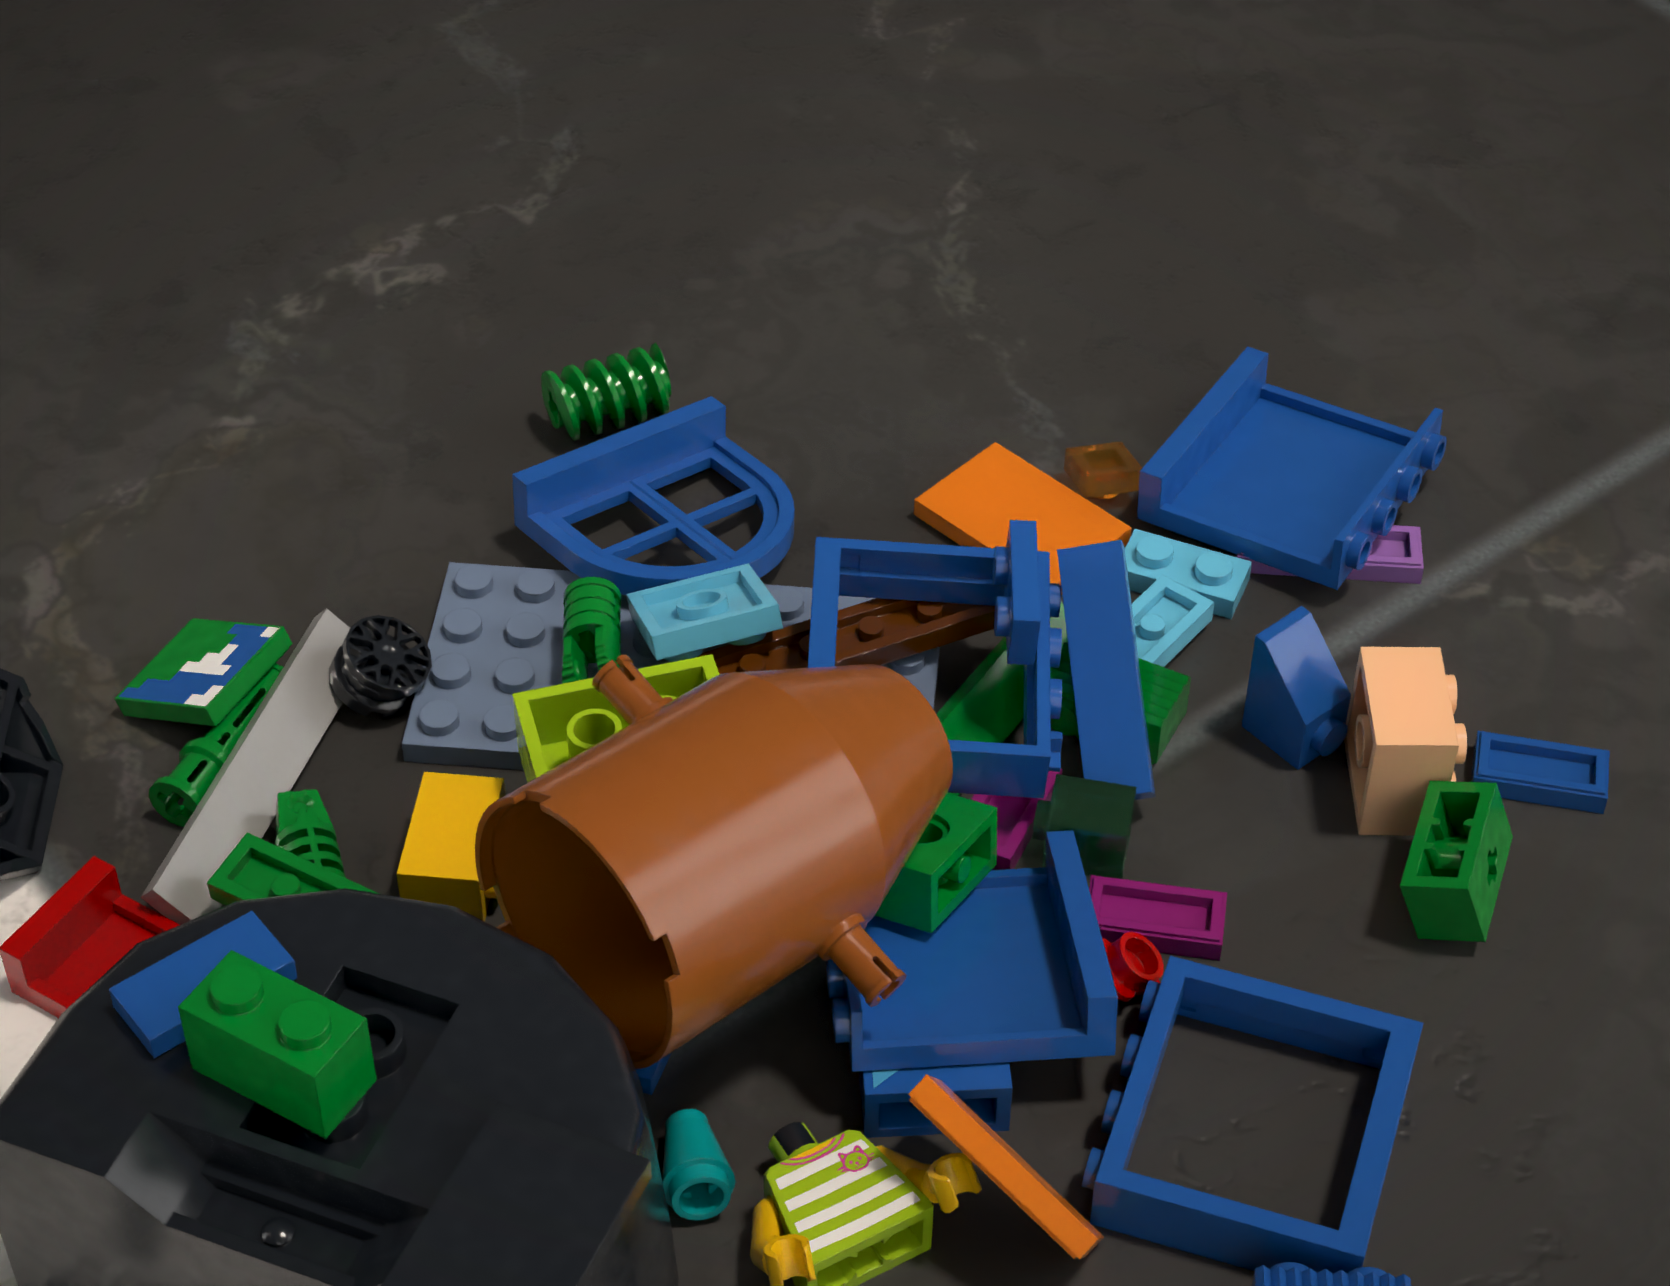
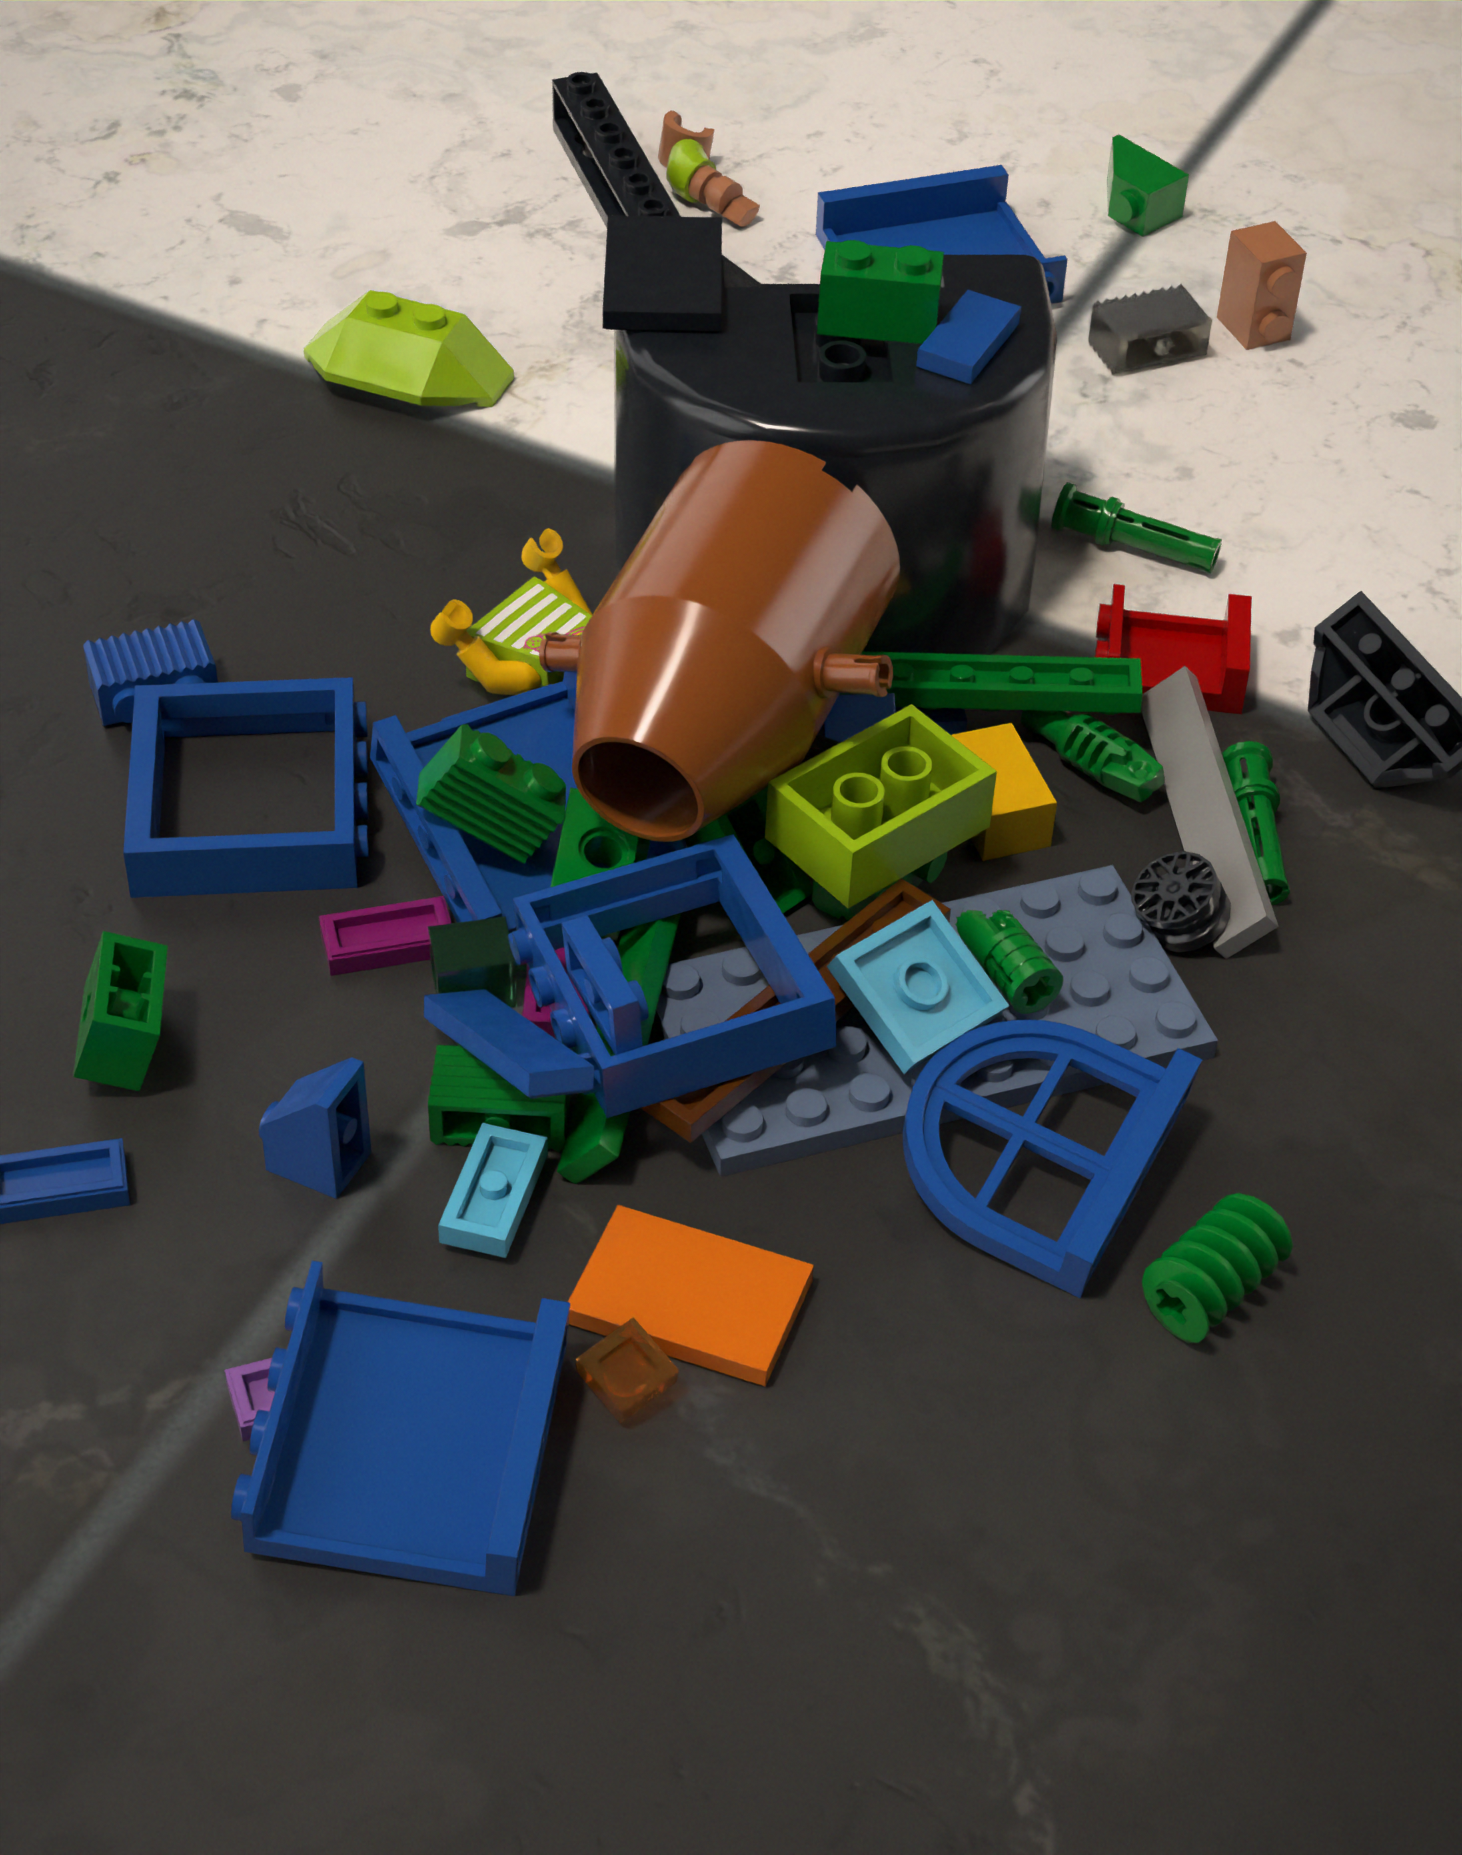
camera: 155 degrees right, 0 degrees up
(204, 671) = (1328, 861): tile -> none
(1005, 1167) = (419, 640): orange tile -> none
(1018, 895) = (492, 793): none -> green brick
(1132, 964) = (391, 871): red plate -> none
(1197, 568) = (491, 1282): medium azure plate -> none
(1400, 735) = (197, 1092): light nougat brick -> none

